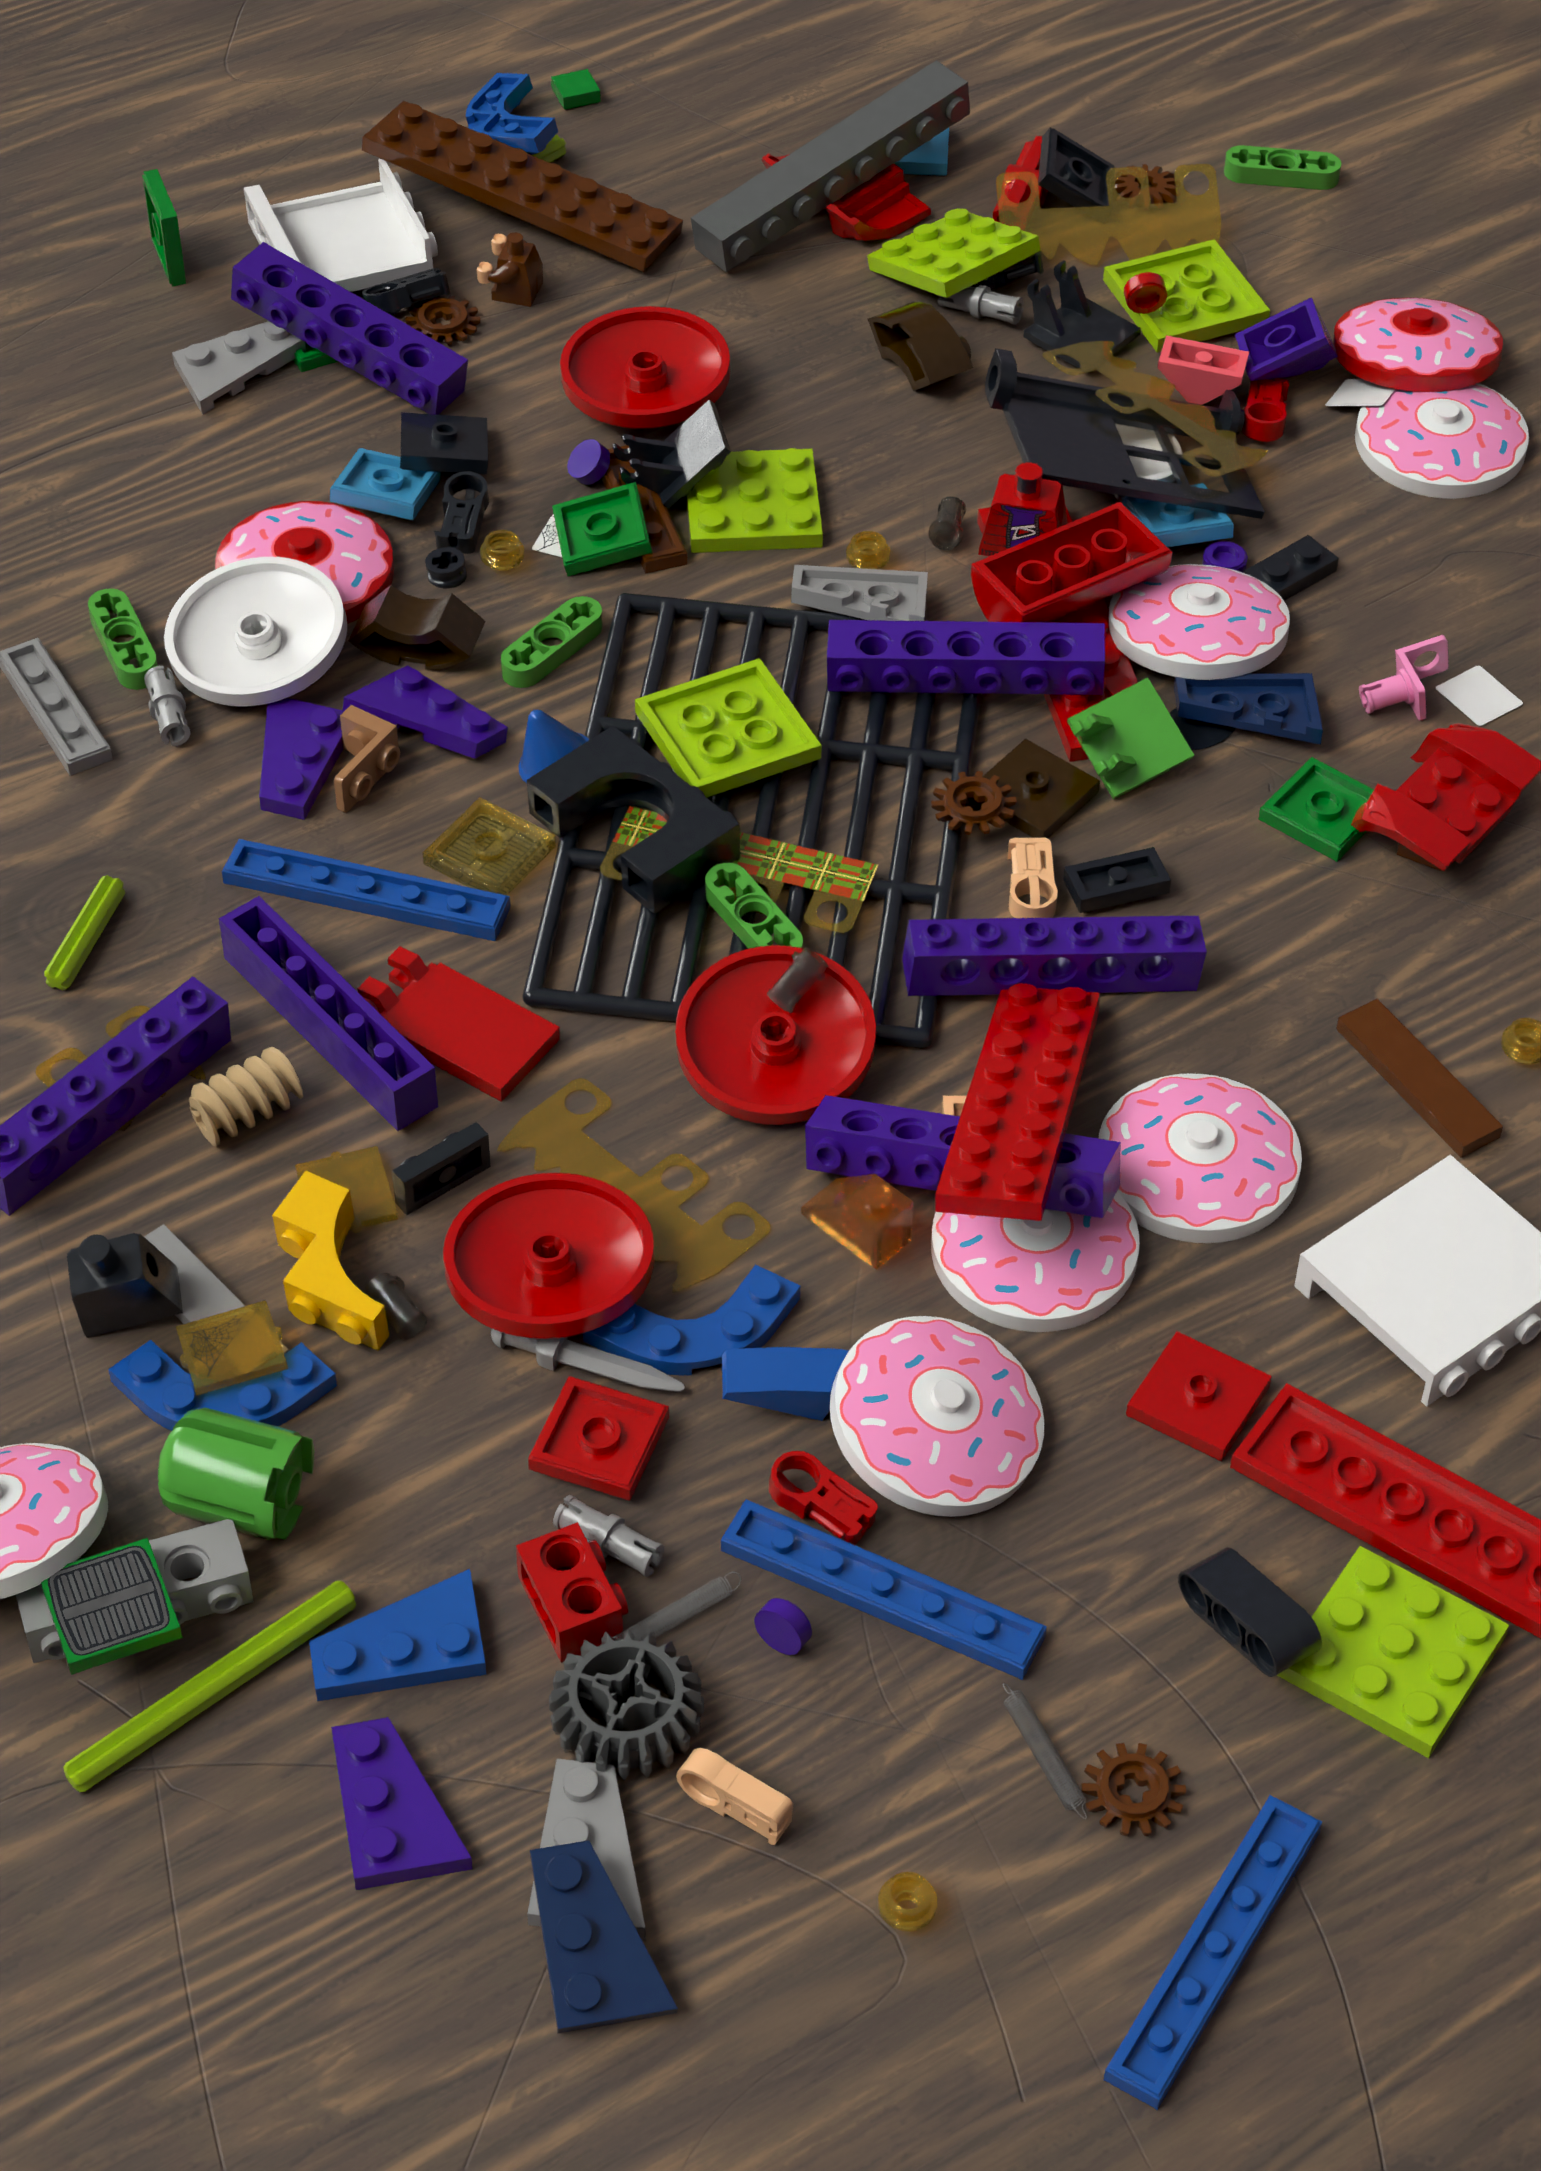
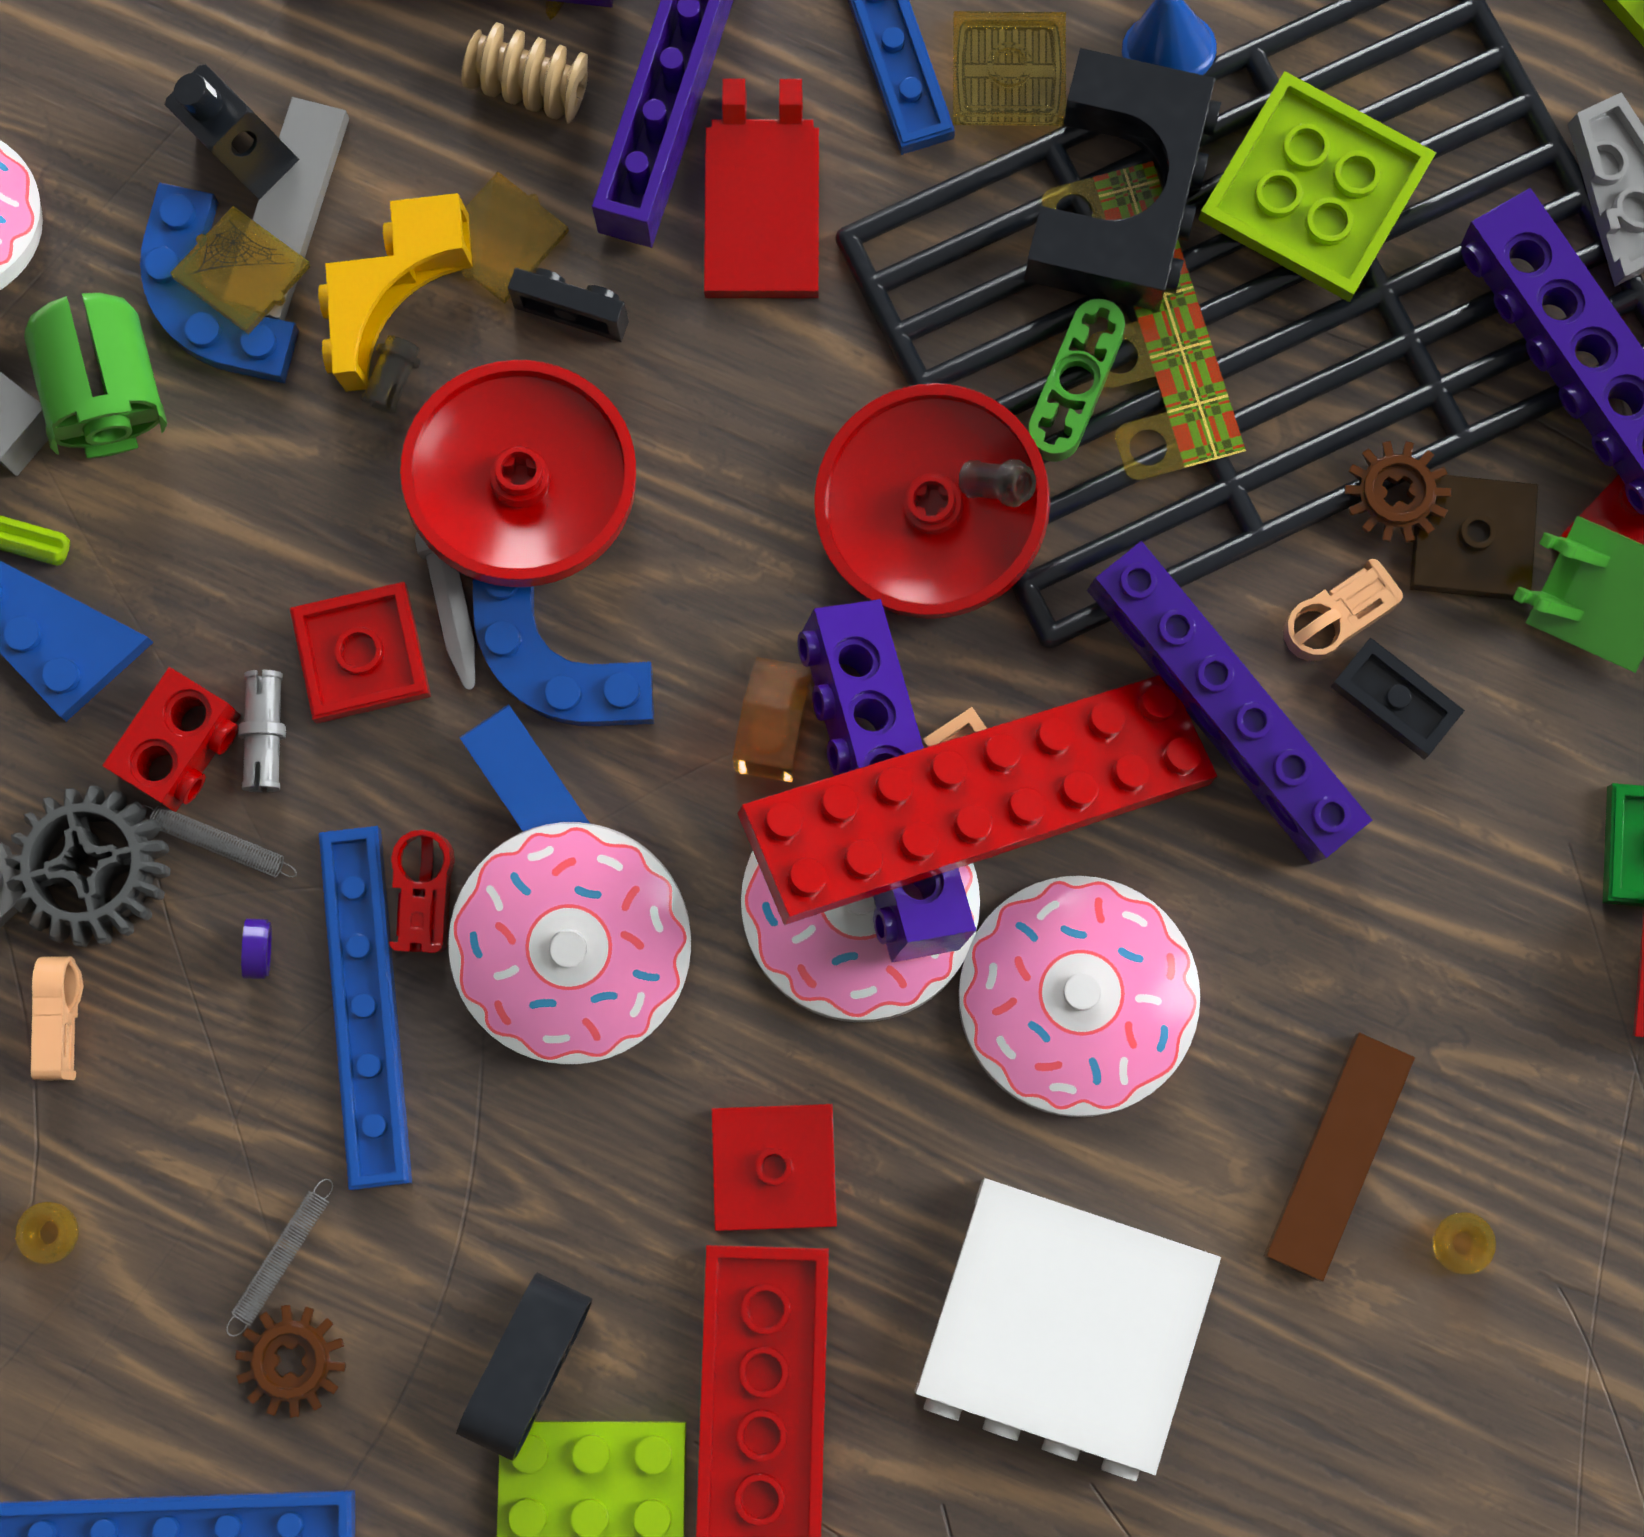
camera: 60 degrees right, 30 degrees up
(676, 1236) = (672, 503): clear yellow piece -> none

